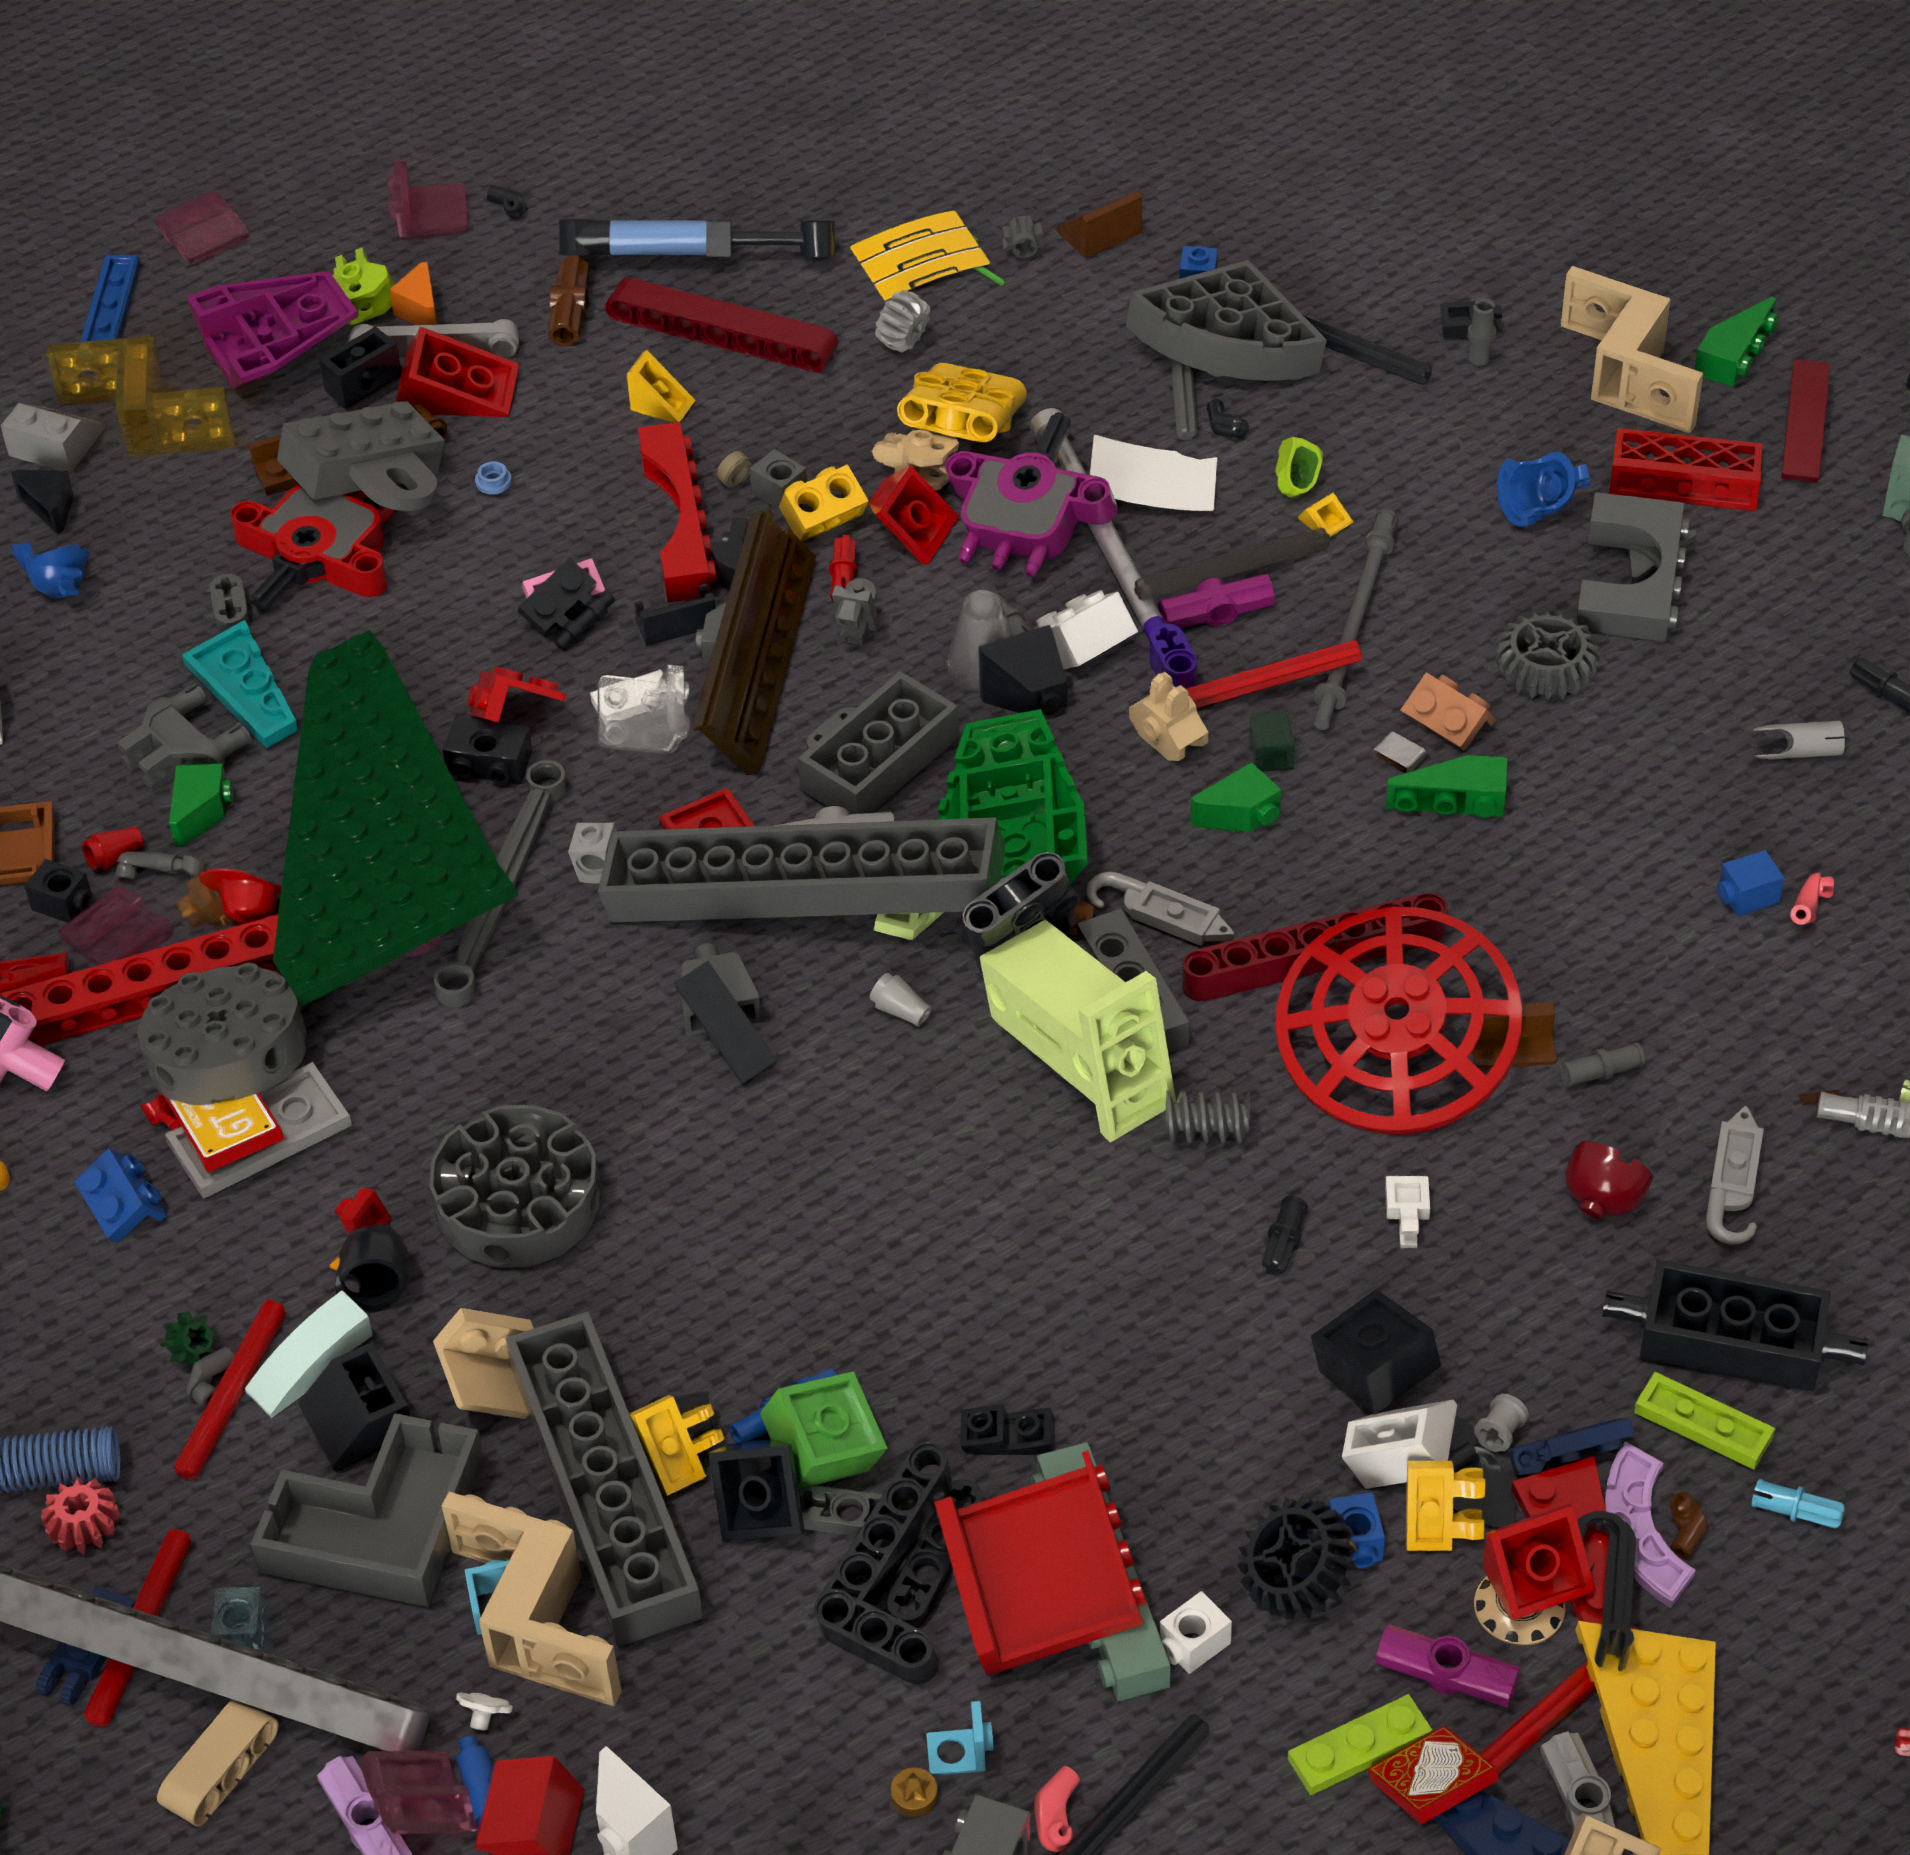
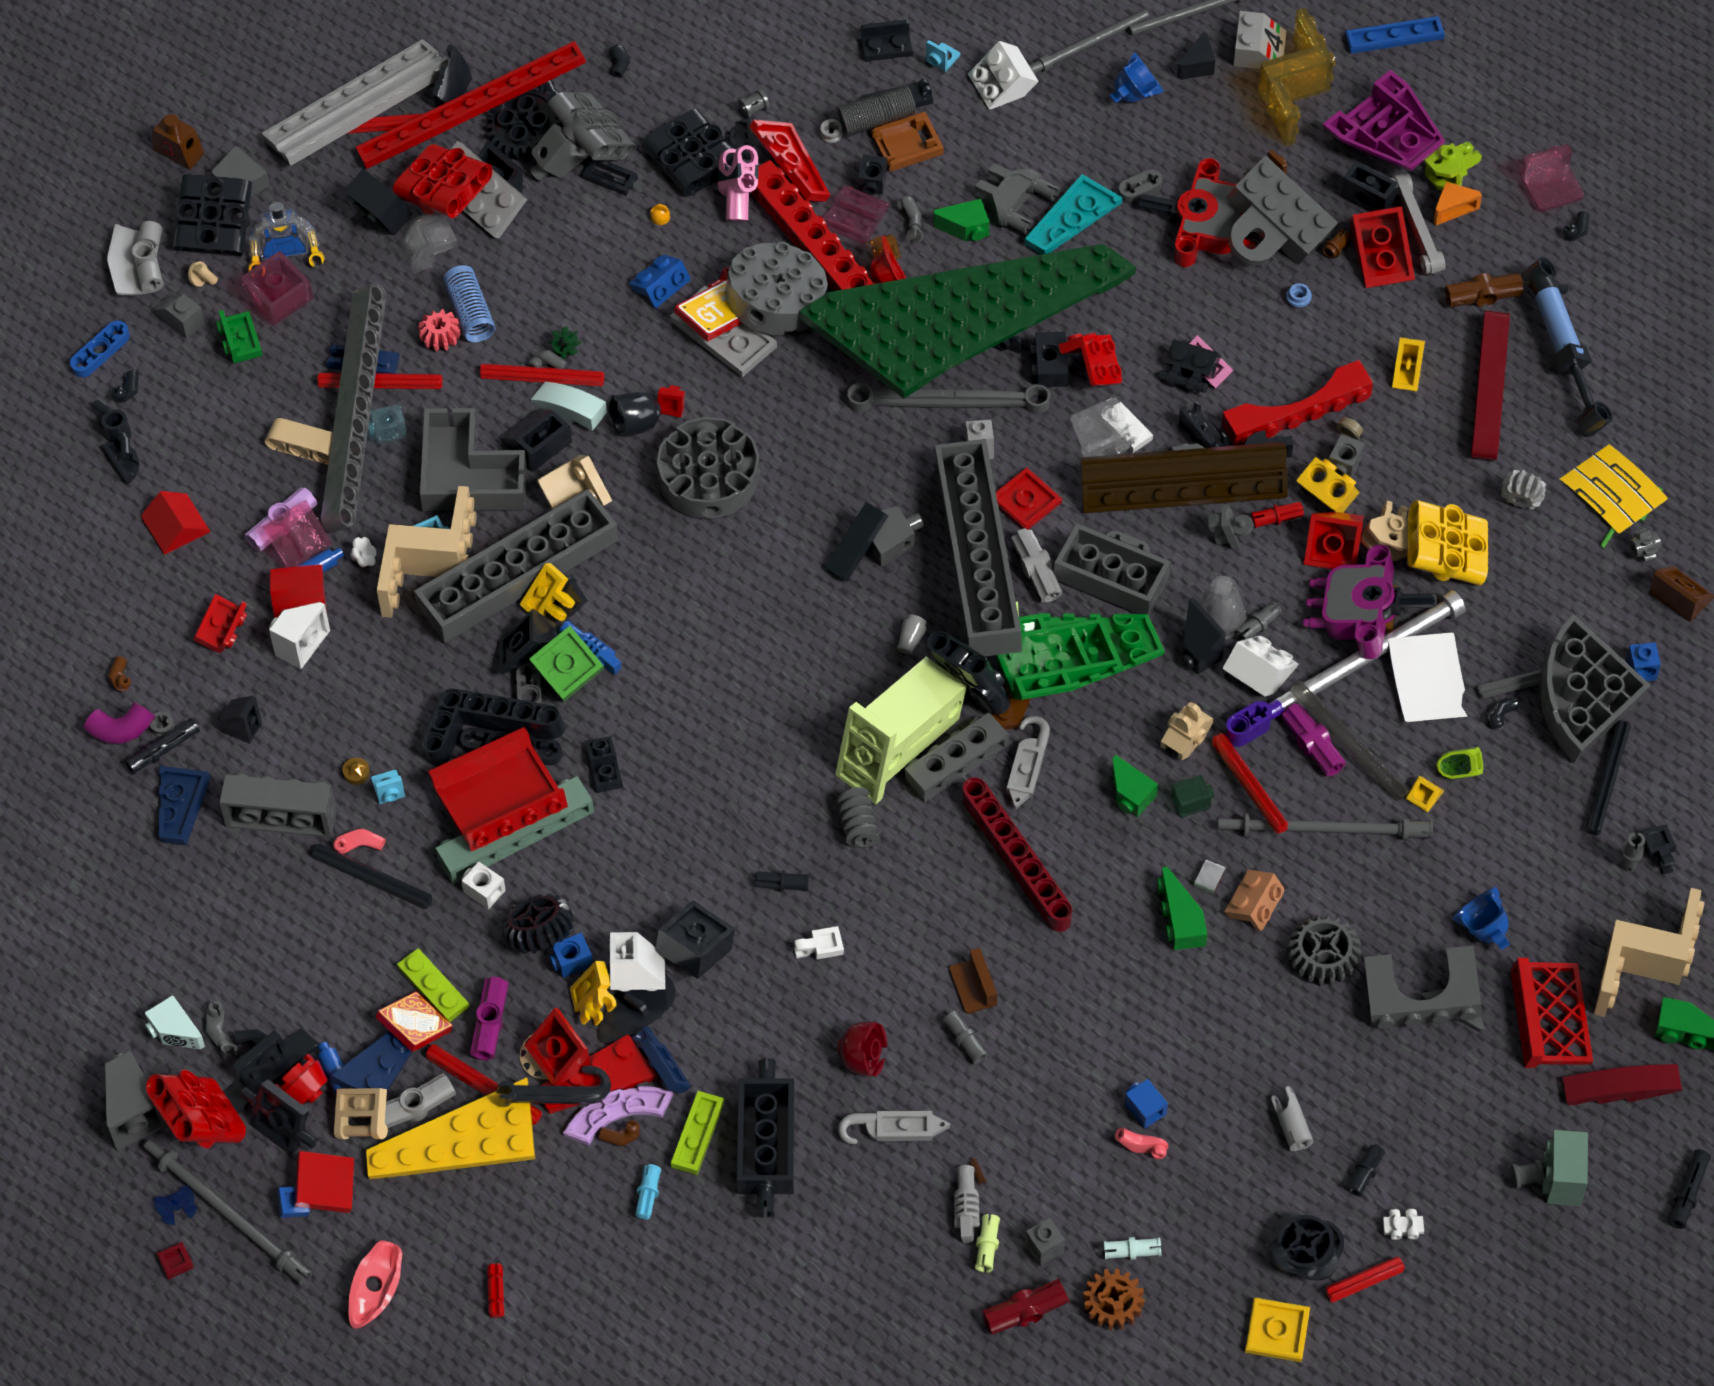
camera: 75 degrees right, 10 degrees up
(105, 847) = (916, 188): red cone -> none
(202, 227) = (1485, 60): clear pink slope -> none
(1403, 1037) = (961, 917): red dish -> none
(1497, 1428) = (666, 1020): light grey bush -> none

